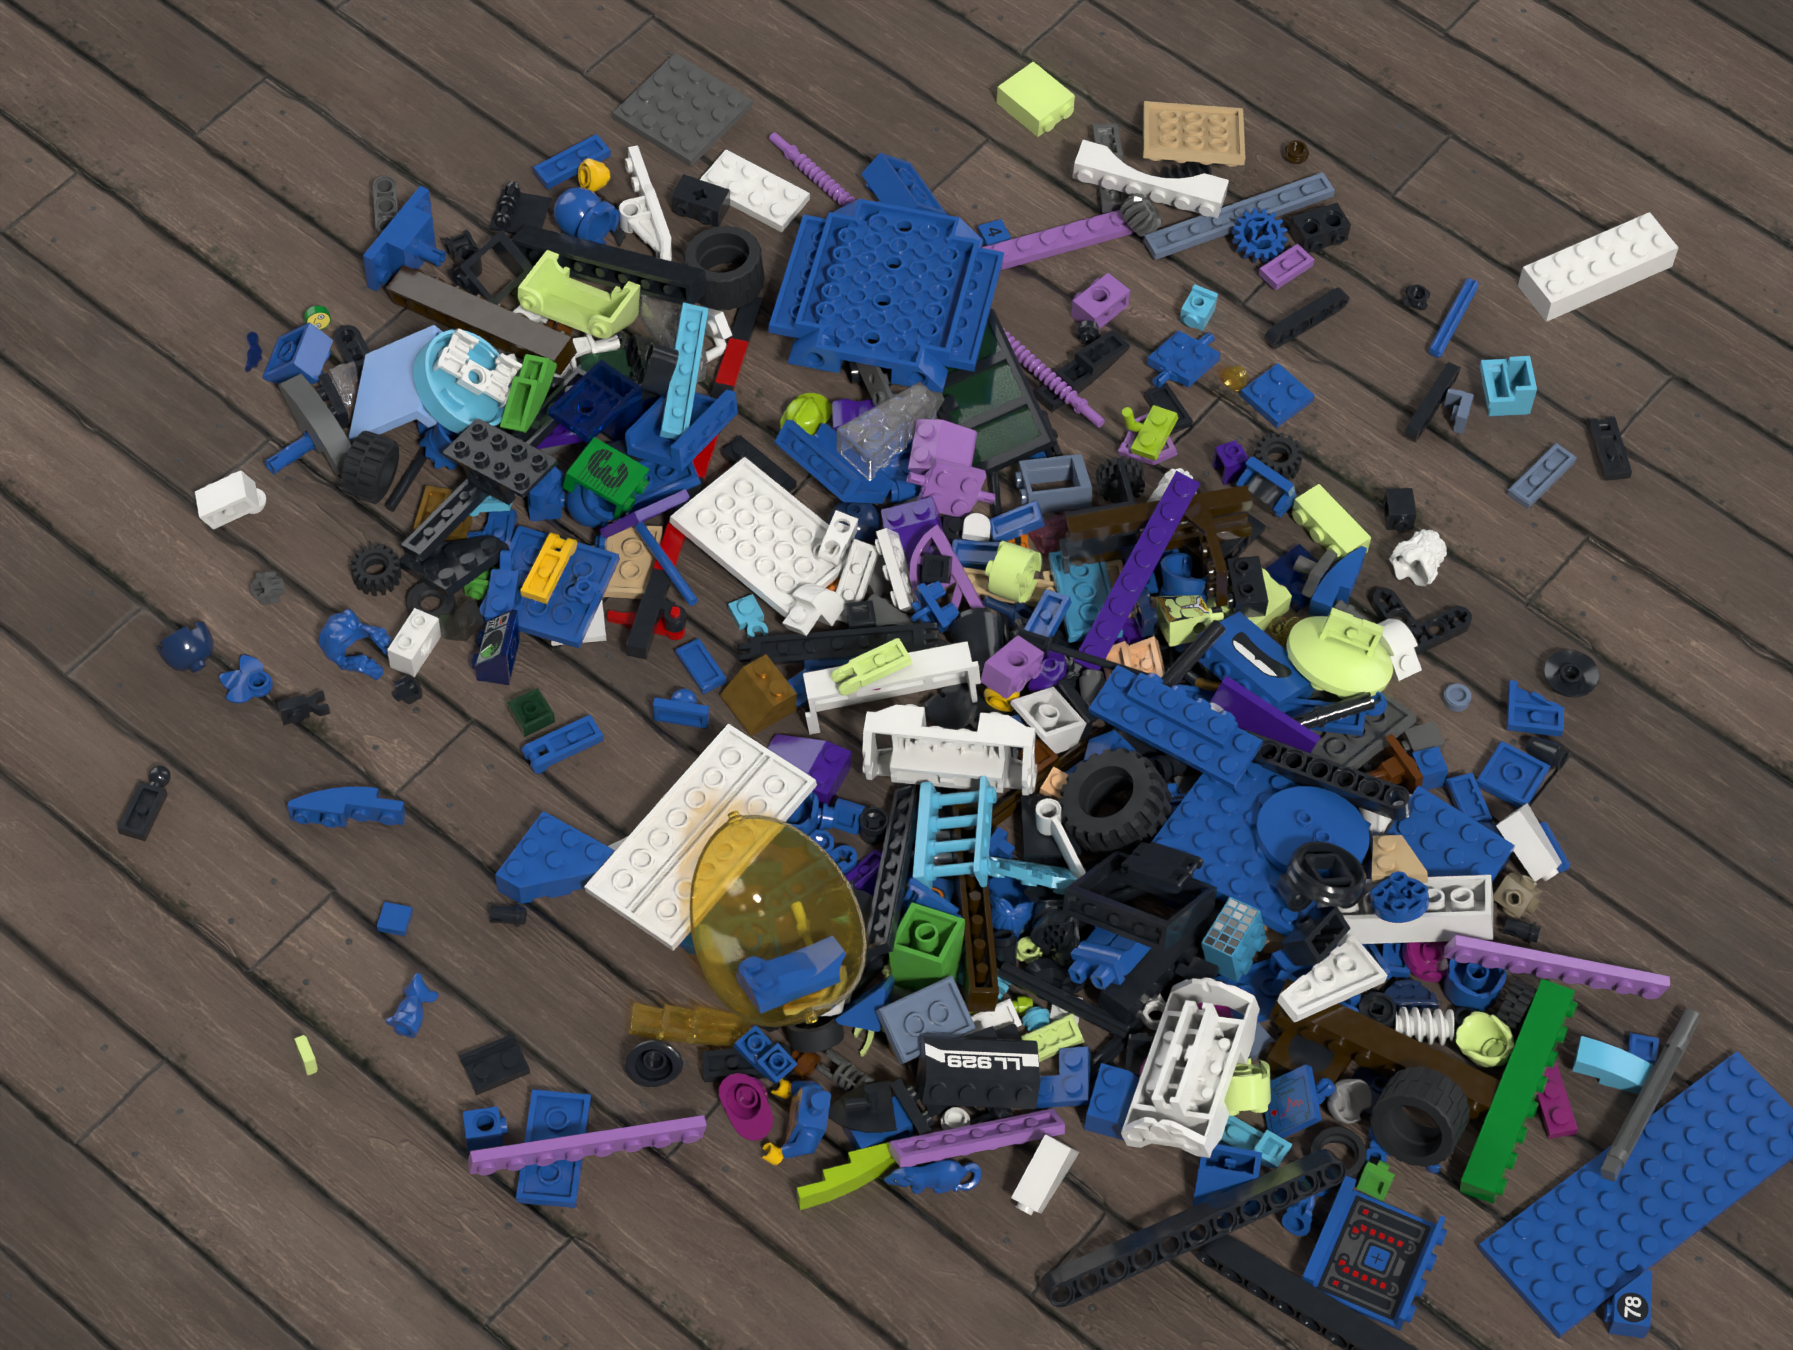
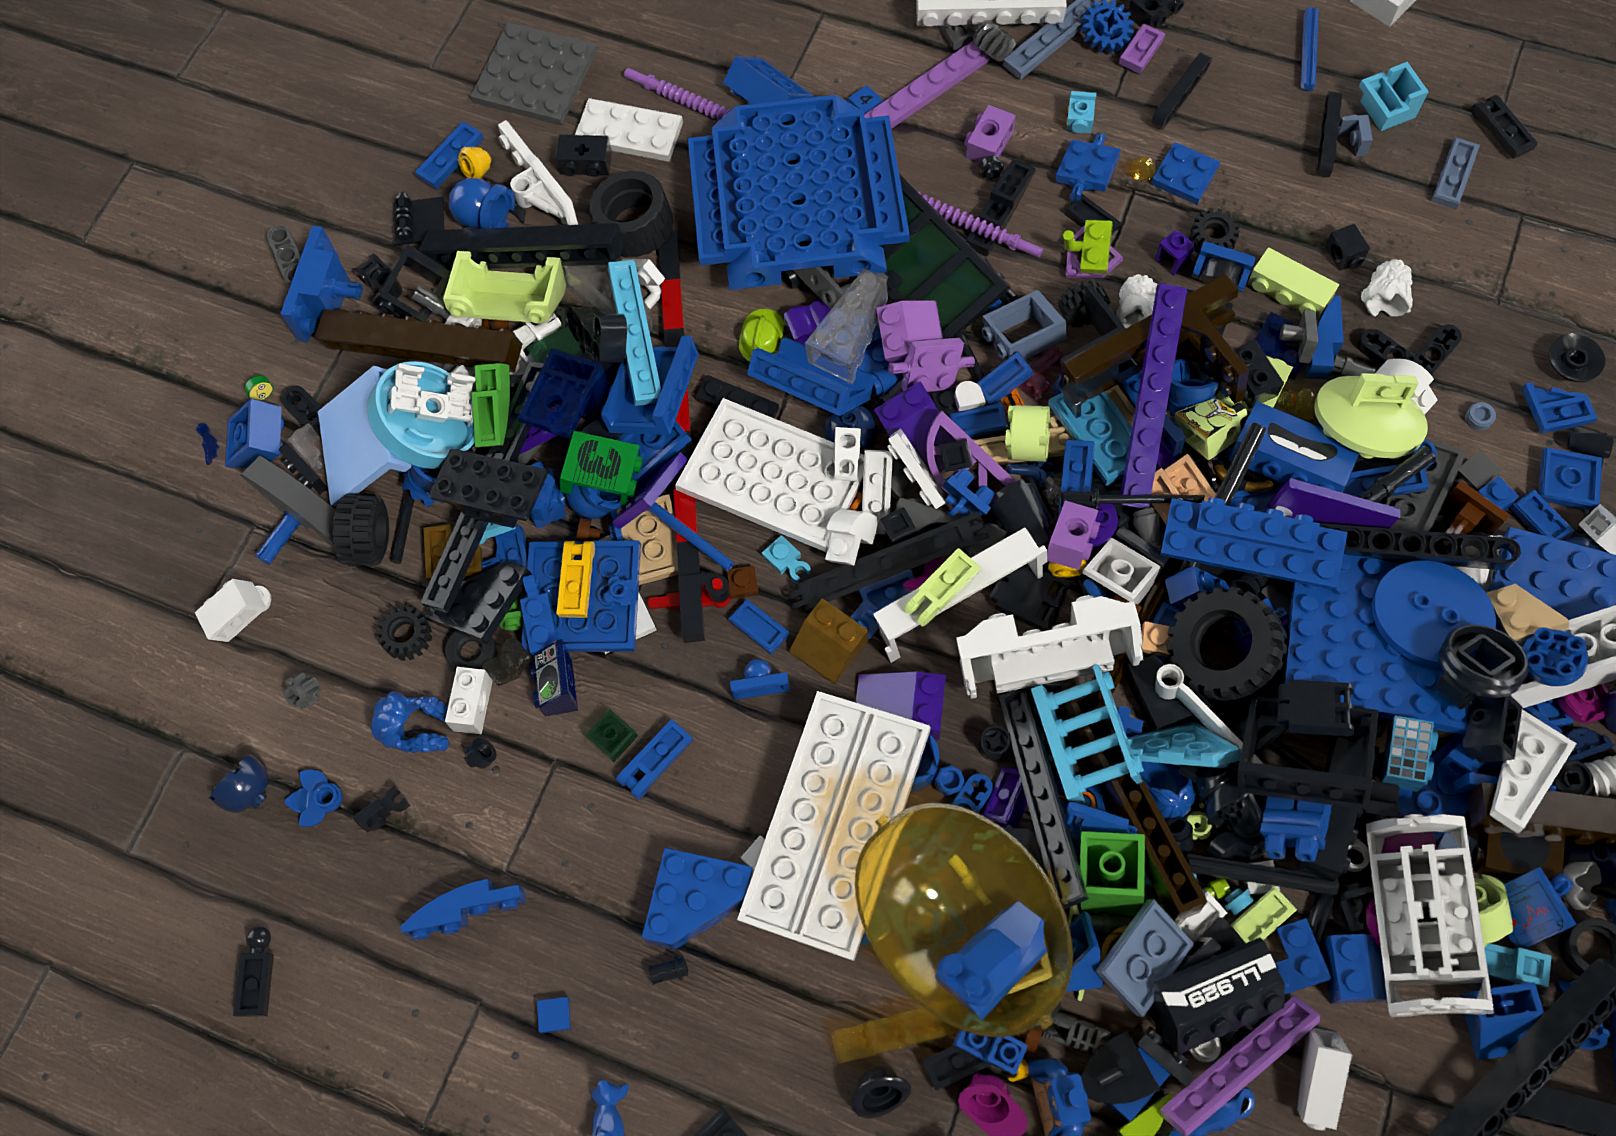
camera: 10 degrees left, 10 degrees up
(505, 288) = (431, 301): none -> dark grey pin
(573, 532) = (586, 531): none -> reddish brown tile
(701, 624) = (742, 582): none -> reddish brown plate
(825, 817) = (945, 749): blue plate -> none
(847, 816) = (965, 741): blue tile -> none
(1414, 292) = (1268, 39): black plate -> none

